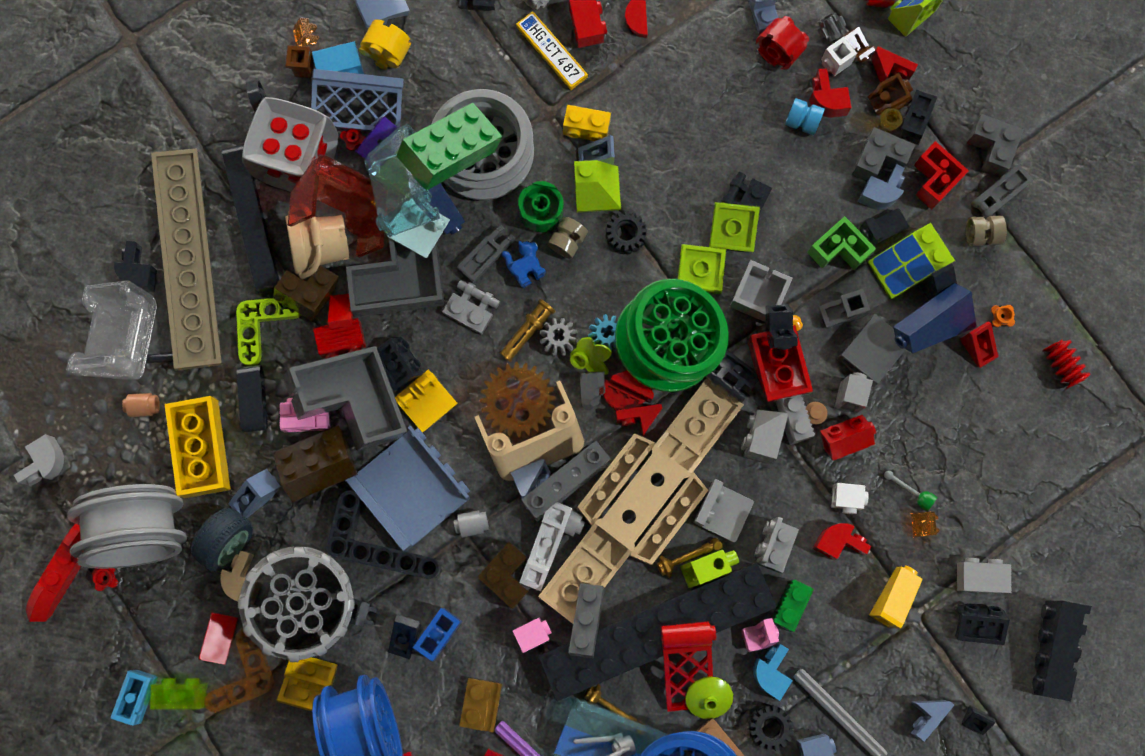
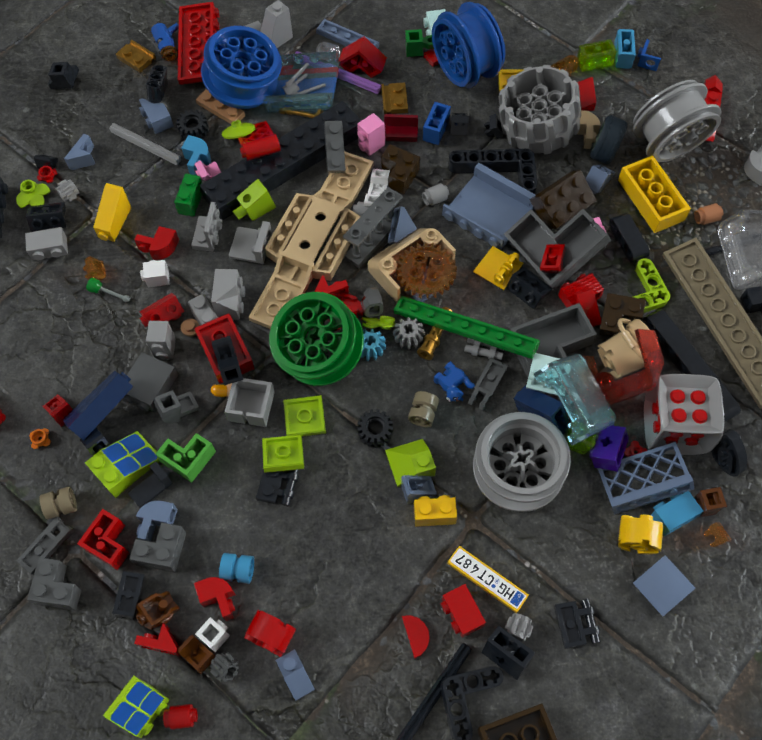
camera: 170 degrees right, 15 degrees down
(112, 685) = (644, 57): none -> blue bracket
(360, 376) = (553, 258): none -> red slope
(449, 146) = (544, 416): brick -> none
(487, 643) = (401, 127): none -> dark red panel
(491, 317) = (467, 327): none -> green tile
(530, 200) = (456, 437): green brick -> none
(666, 566) = (285, 201): pearl gold piece -> none
(736, 371) = (255, 339): black plate -> none
(890, 120) = (152, 578): clear yellow cone -> none
(952, 655) = (67, 190): none -> light grey gear
(985, 695) = (46, 174): none -> red plate
(997, 663) = (31, 194): none -> lime plate

